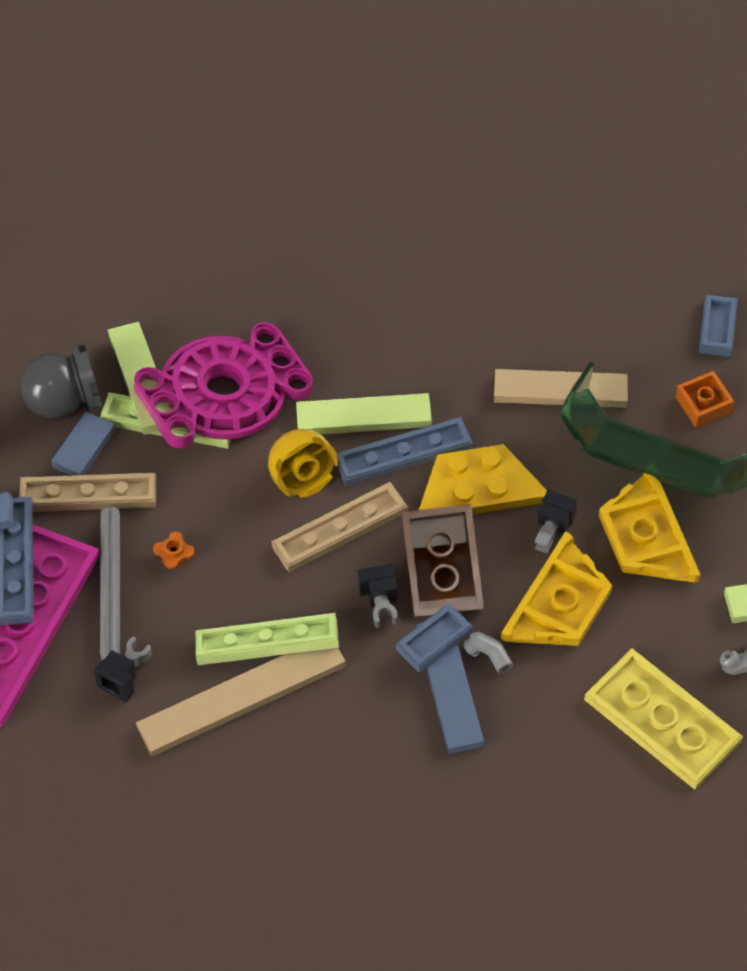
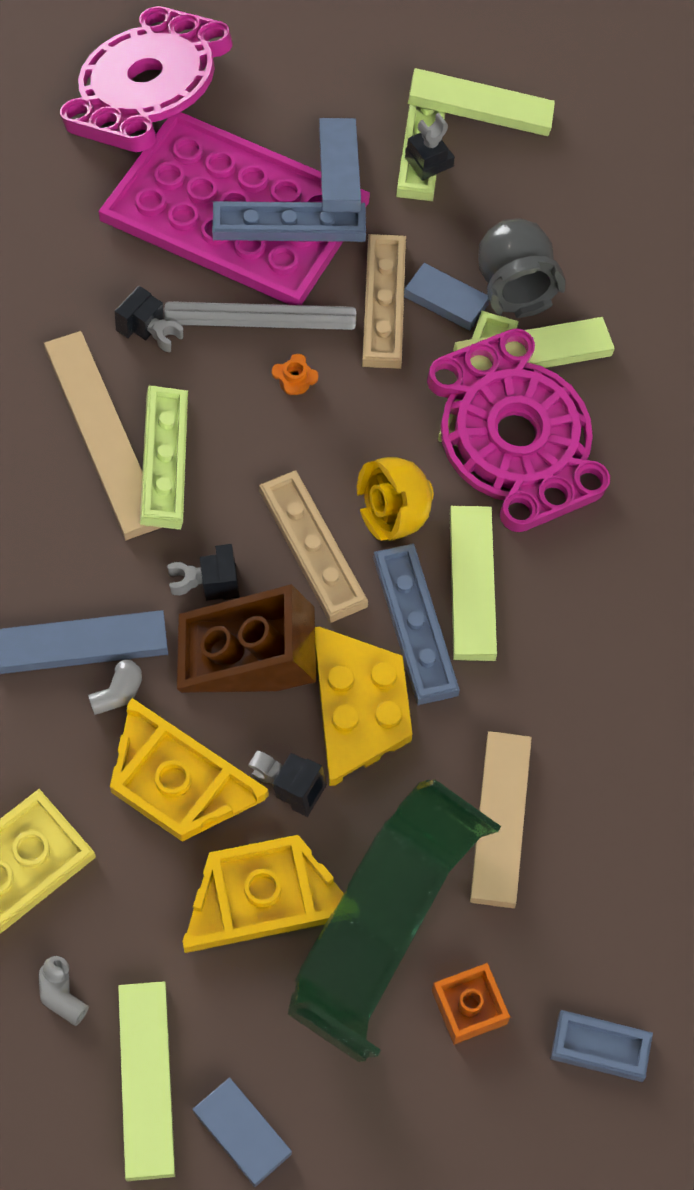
camera: 90 degrees right, 5 degrees up
(434, 637) = (136, 624): sand blue tile -> none

